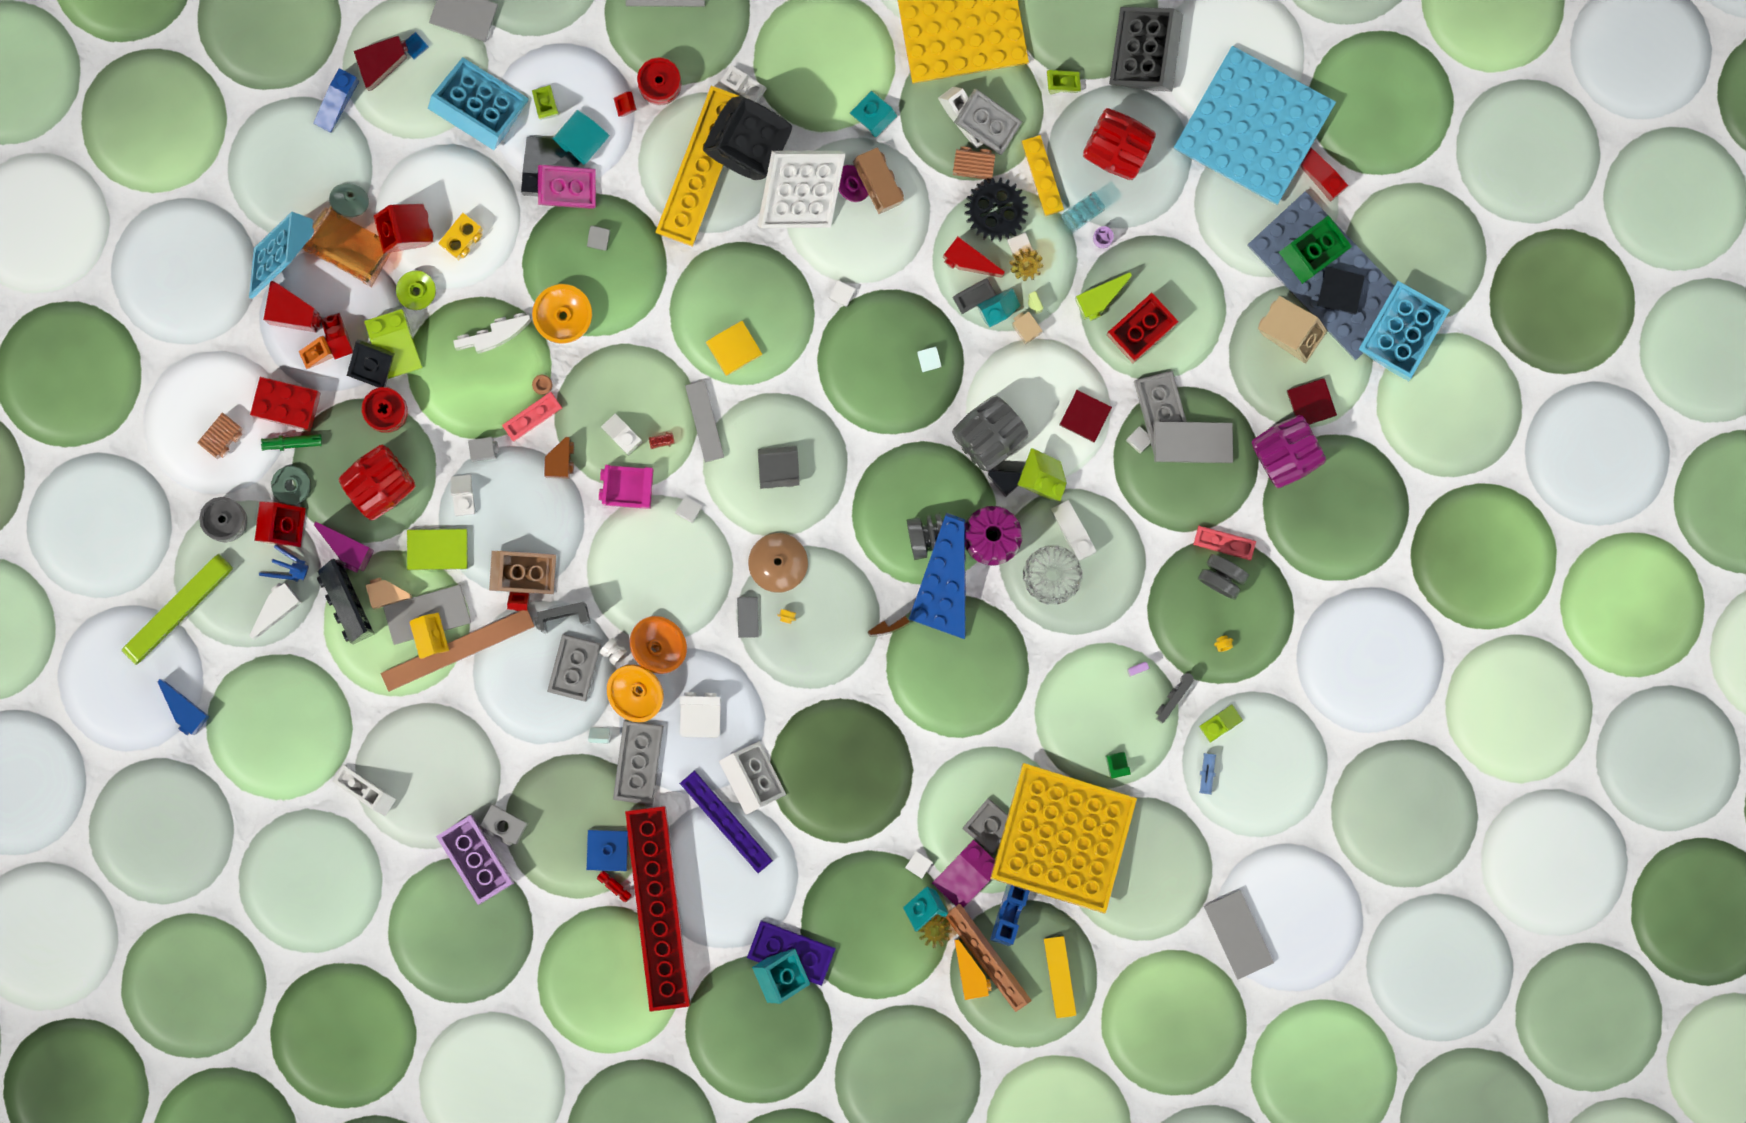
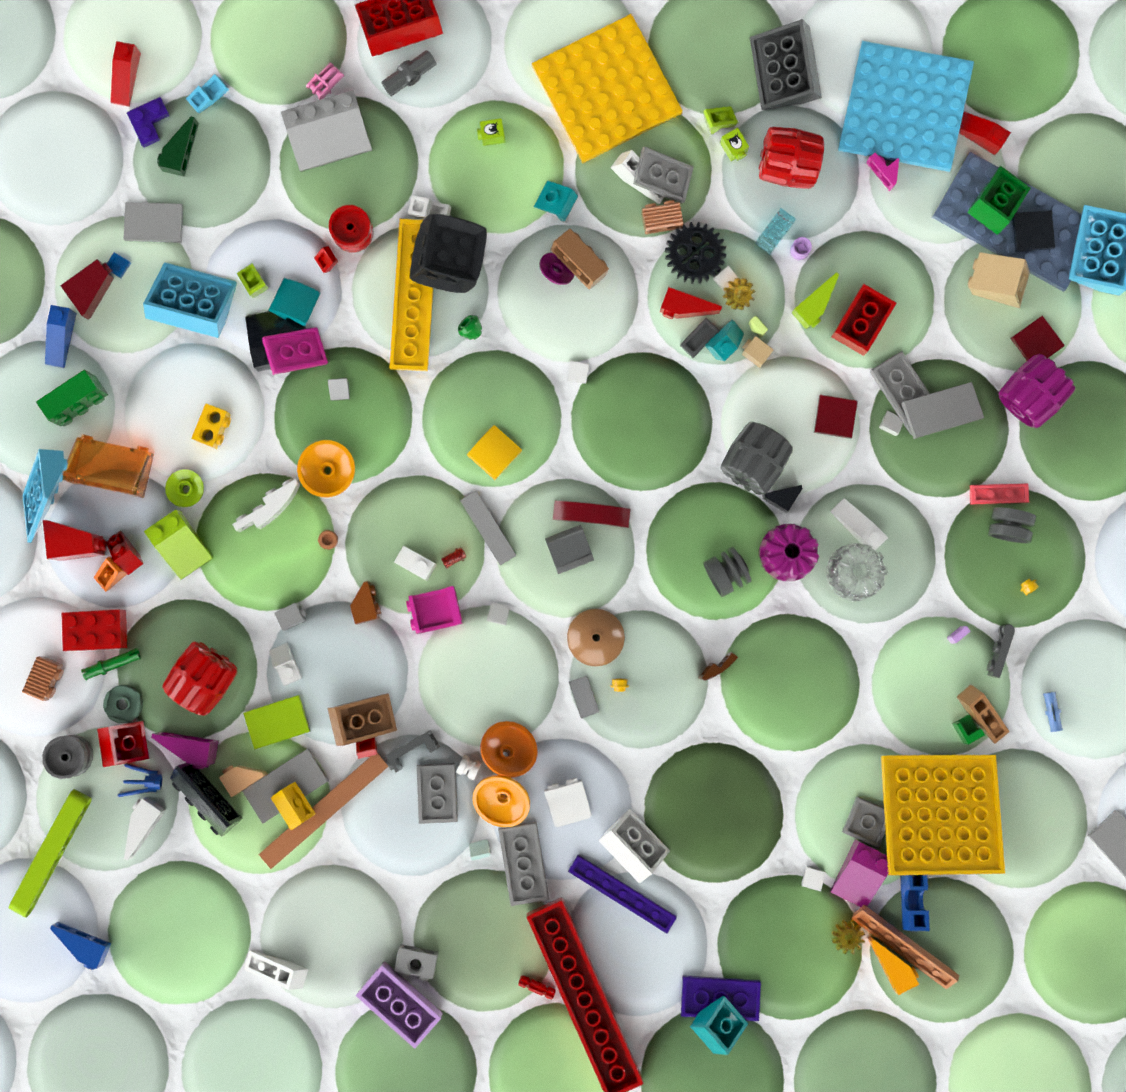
camera: 15 degrees left, 0 degrees up
(332, 168) = (72, 398): none -> green brick
(348, 206) = (100, 429): sand green dish -> none
(370, 364) = (162, 569): black tile -> none
(396, 410) = (199, 605): red wheel -> none
(403, 227) = (154, 433): red slope -> none
(532, 416) = (327, 572): coral tile -> none
(607, 850) = (520, 955): blue plate -> none
(747, 216) = (470, 327): none -> green cone
(801, 189) = (511, 285): white plate -> none
(812, 438) = (591, 513): none -> dark red slope
(829, 25) = (491, 132): none -> lime brick
(924, 908) = (832, 919): teal piece -> none
(929, 359) = (676, 408): light aqua slope -> none
(943, 587) = (757, 616): blue wing -> none
(1042, 175) = (727, 210): yellow plate -> none
(1043, 475) = (816, 483): lime slope -> none
(1060, 977) = (977, 943): yellow slope -> none
(1069, 113) = (734, 145): none -> lime brick
(1137, 754) = (983, 713): none -> medium nougat slope
(1213, 188) = (886, 174): none -> dark pink slope
(1220, 723) = (1047, 663): lime slope -> none

